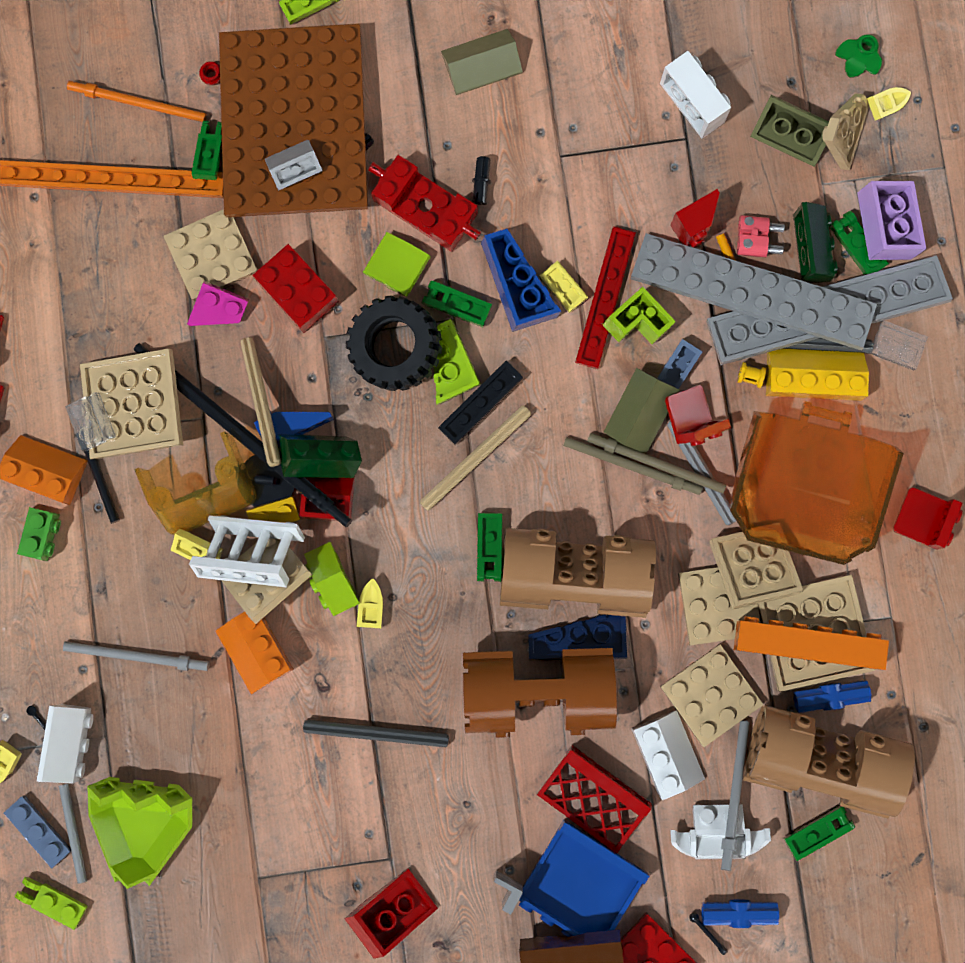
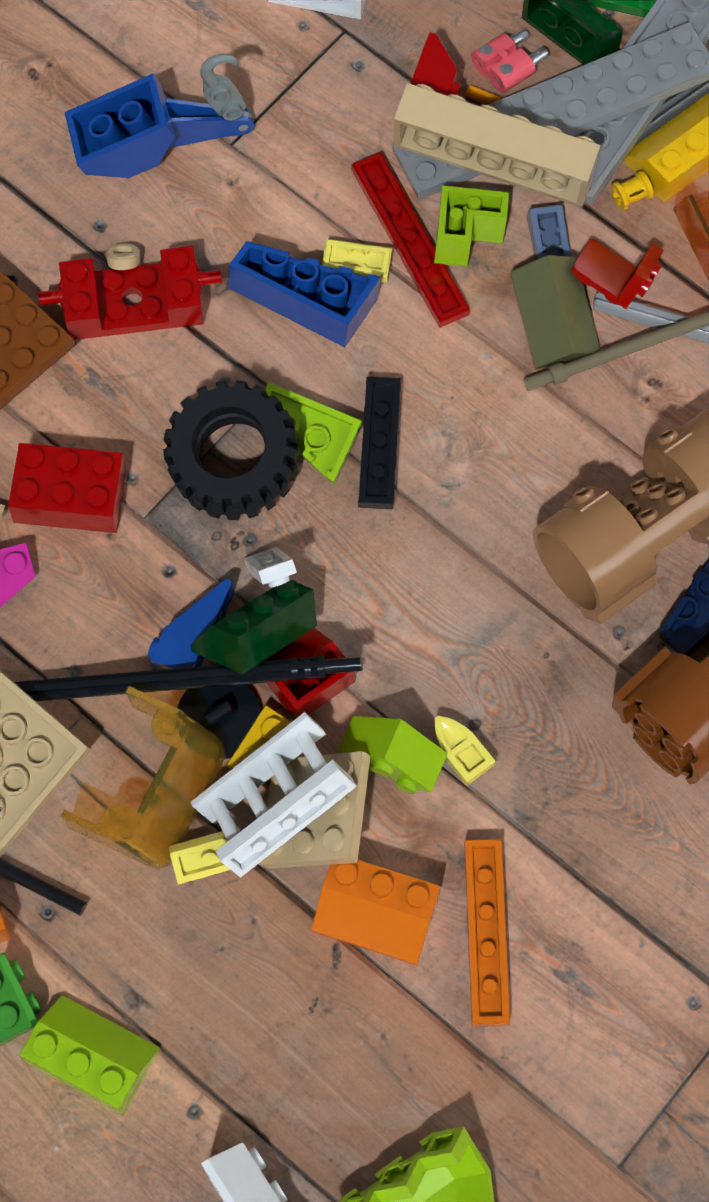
camera: 45 degrees left, 15 degrees down
(54, 598) = (89, 1054): none -> lime slope
(182, 662) = (306, 996): light grey bar -> none
(260, 402) = (140, 629): tan axle -> none
(297, 710) = (486, 933): none -> orange plate
(354, 426) = (270, 567): none -> white plate
(375, 733) = (596, 882): dark grey axle -> none
(396, 264) = (155, 378): lime slope -> none
(440, 177) = (123, 256): none -> tan tile
(457, 304) = (262, 363): green plate -> none
(475, 458) = (427, 504): tan axle -> none
(481, 180) = (169, 225): black axle -> none
(482, 61) = (45, 127): olive slope -> none
(489, 546) = (530, 578): green plate -> none
(507, 102) = (137, 124): none -> blue slope
(676, 482) = (659, 353): dark tan bar -> none
(689, 289) = (495, 144): none -> tan brick

